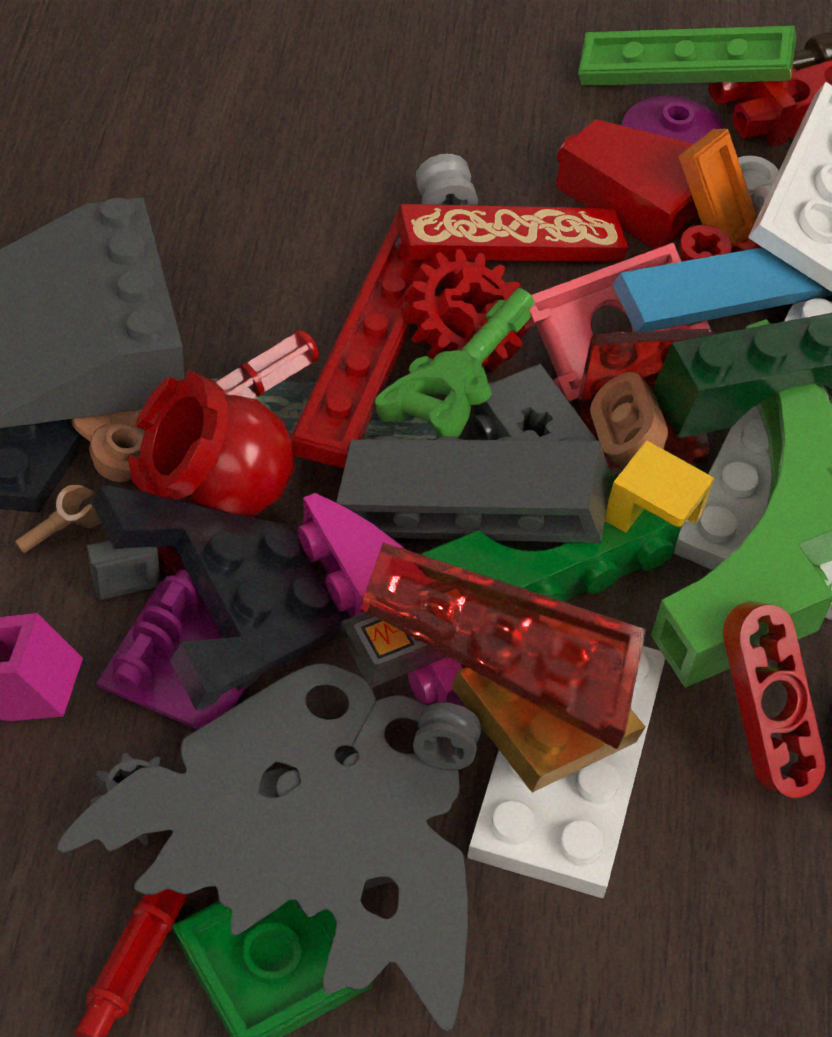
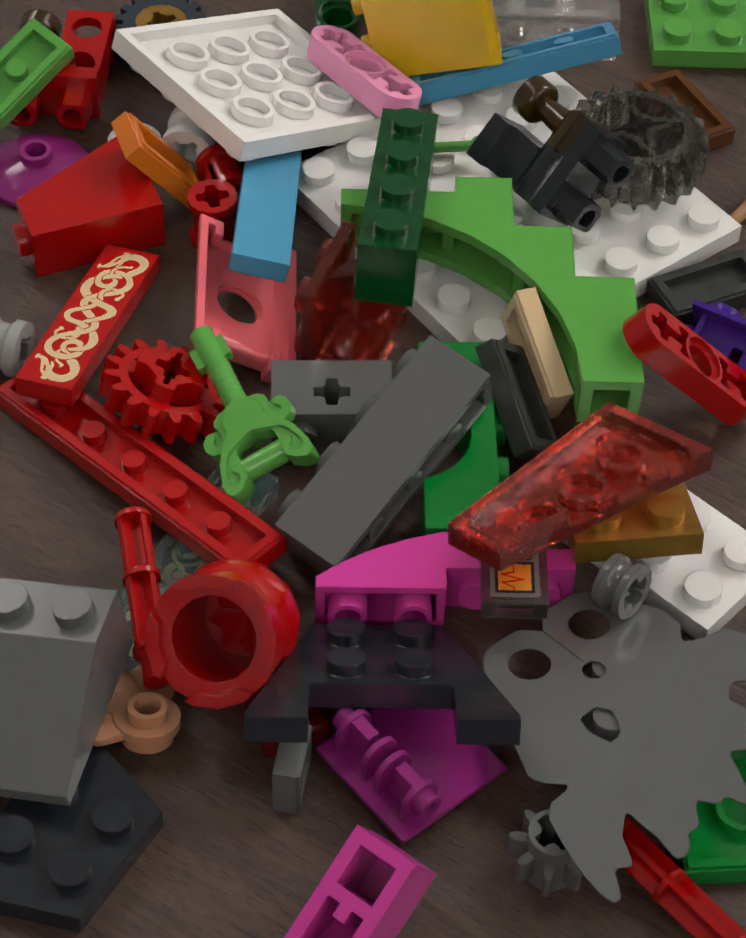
camera: 60 degrees left, 5 degrees down
(66, 513) = (197, 806): medium nougat hand -> none
(626, 417) = (383, 325): nougat plate -> none
(635, 569) = (517, 398): none -> pearl dark grey tile
(660, 485) = (479, 325): yellow panel -> none
(711, 551) = (529, 328): none -> tan tile

